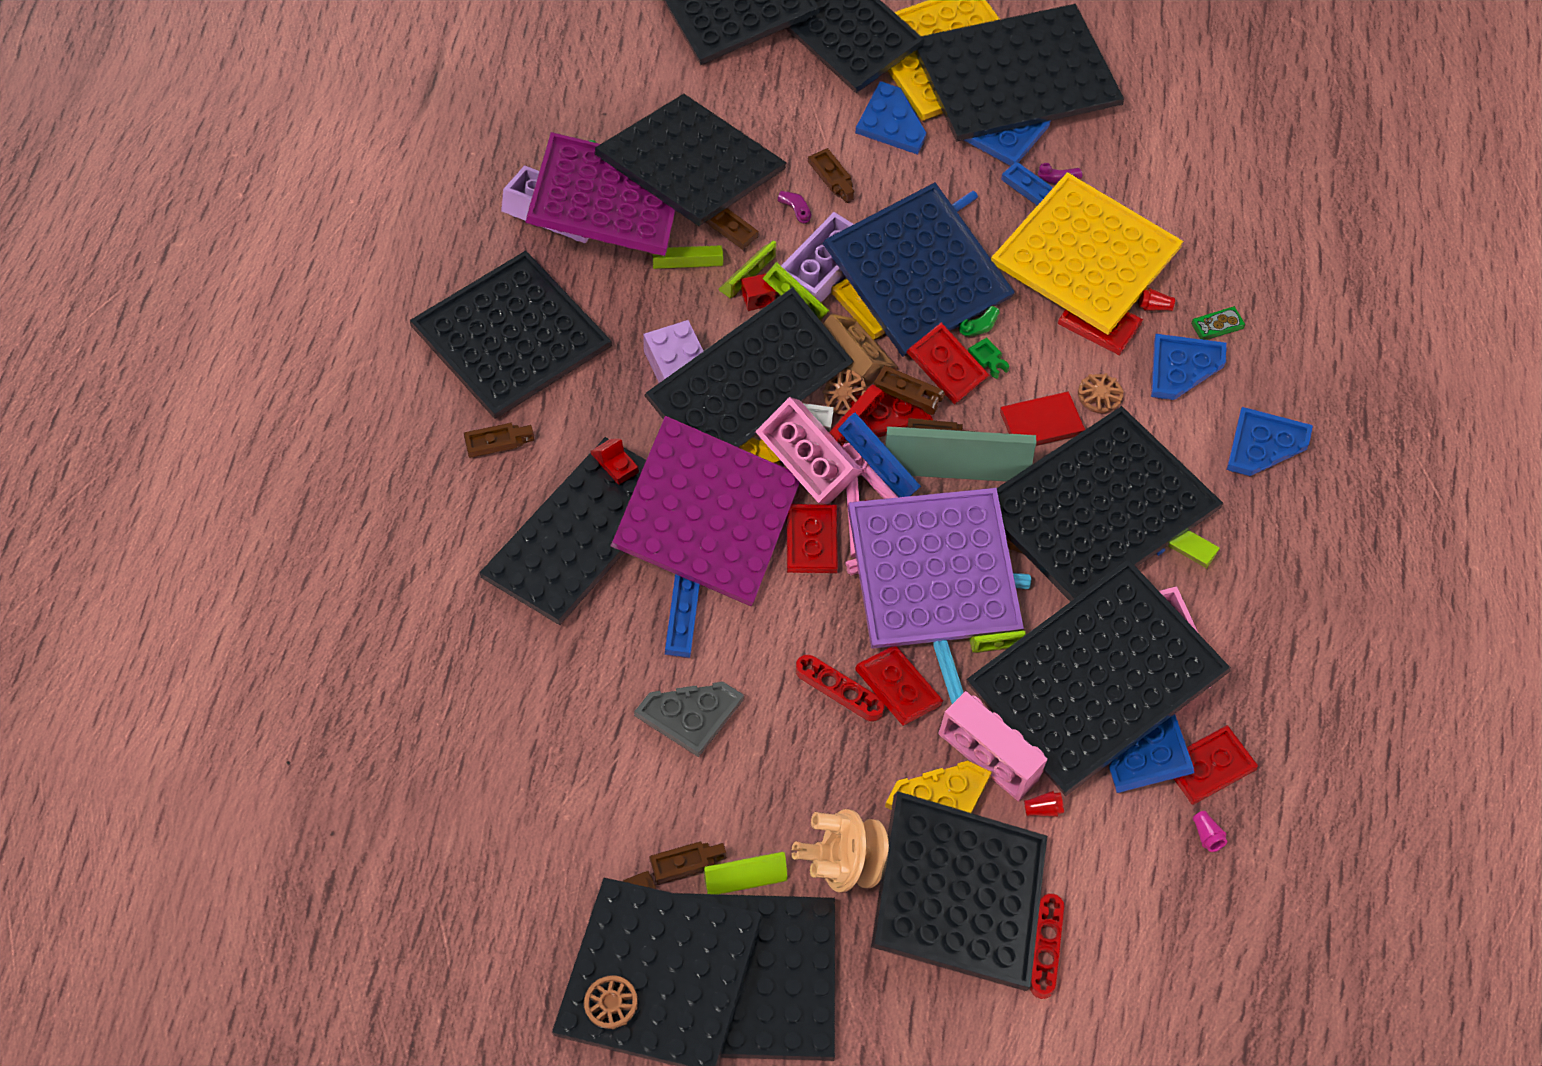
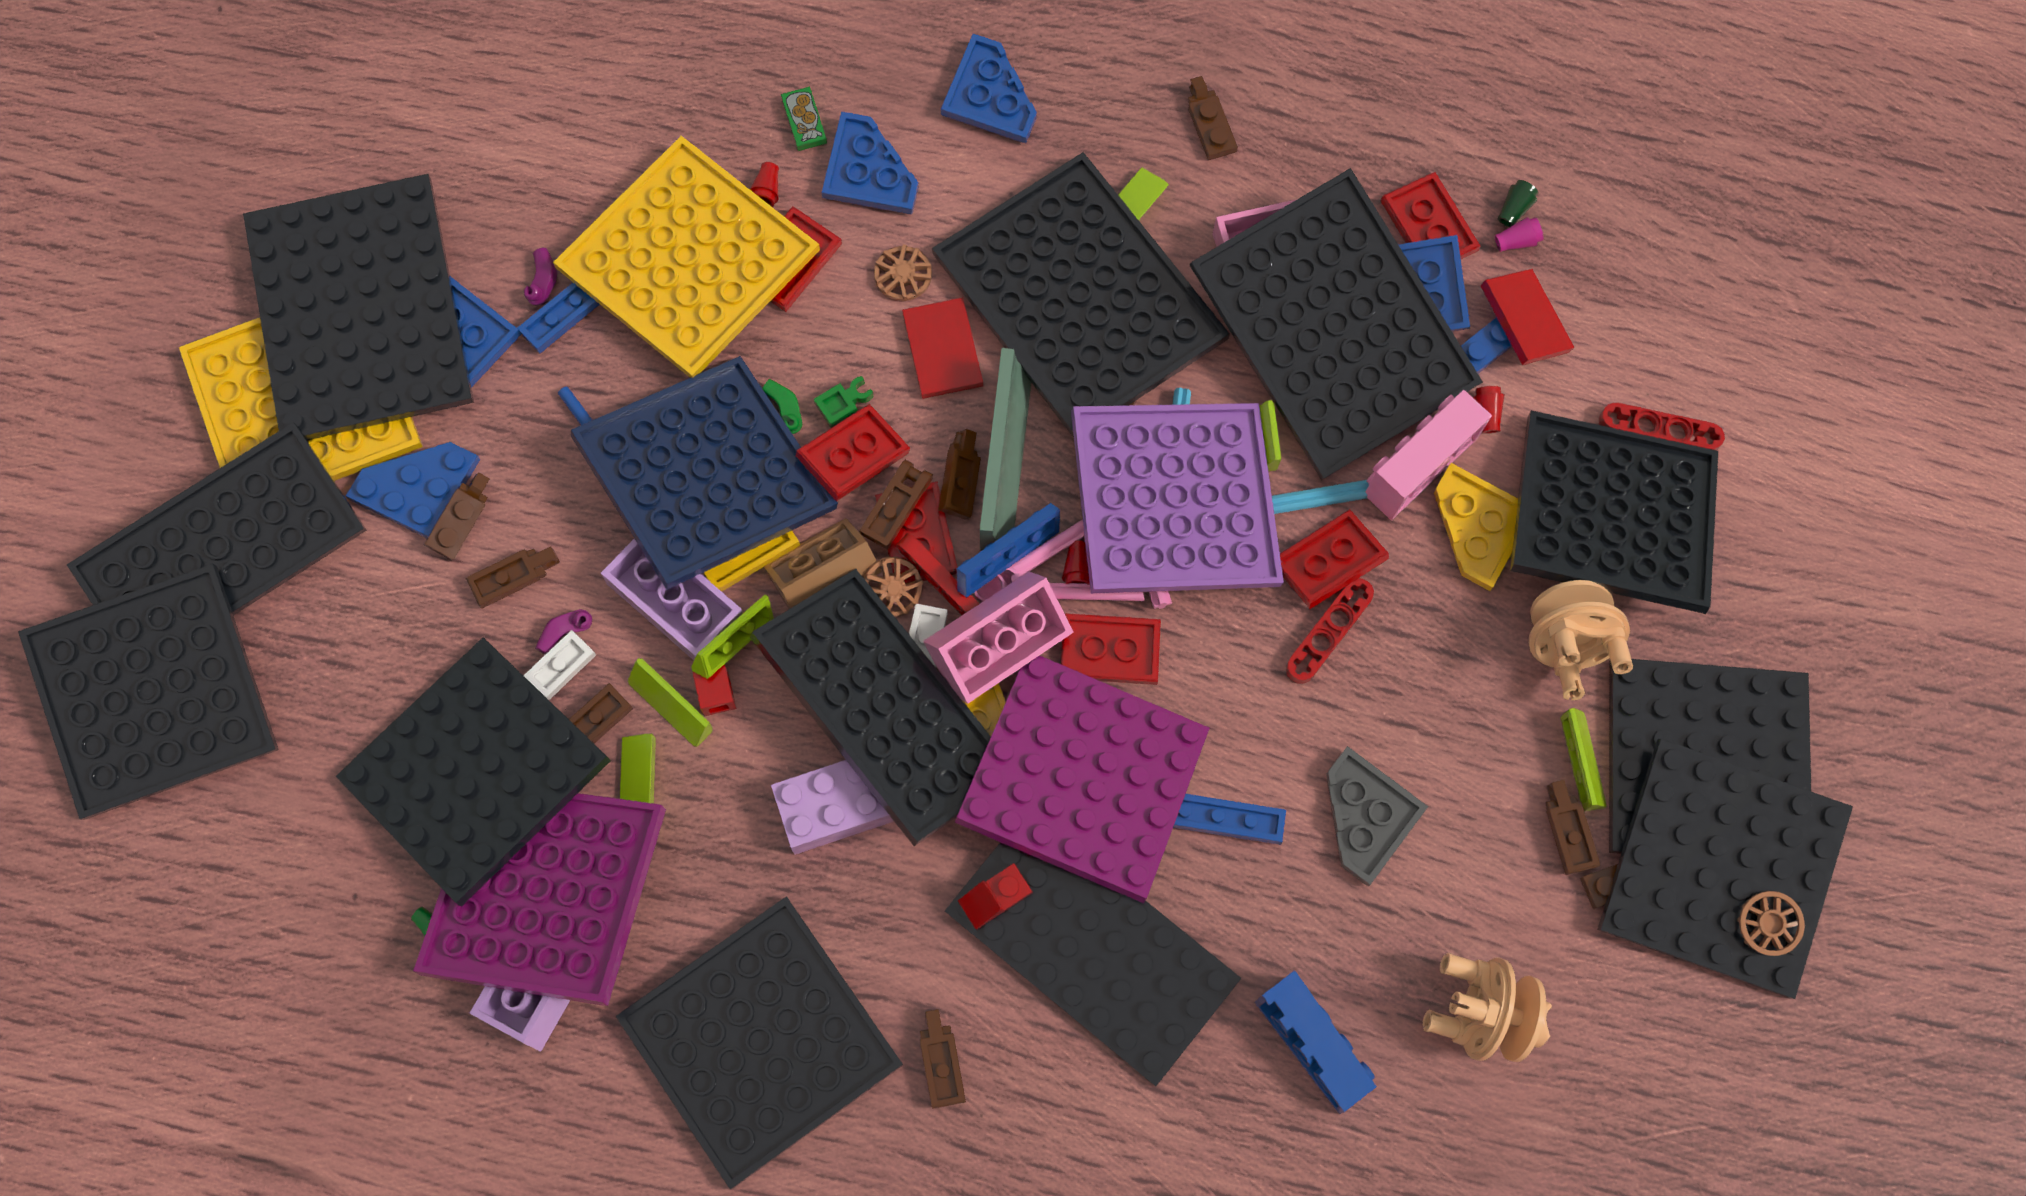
camera: 85 degrees left, 15 degrees up
(513, 670) = (1316, 1042): none -> blue wedge
(536, 777) = (1493, 1010): none -> light nougat piece
(769, 205) = (560, 665): none -> white plate
(871, 141) = (458, 518): none -> reddish brown hinge
(1103, 807) = (1486, 345): none -> blue plate
(1132, 834) = (1527, 316): none -> red tile
(1240, 830) = (1518, 201): none -> dark green cone
(1272, 597) = (1210, 121): none -> reddish brown hinge

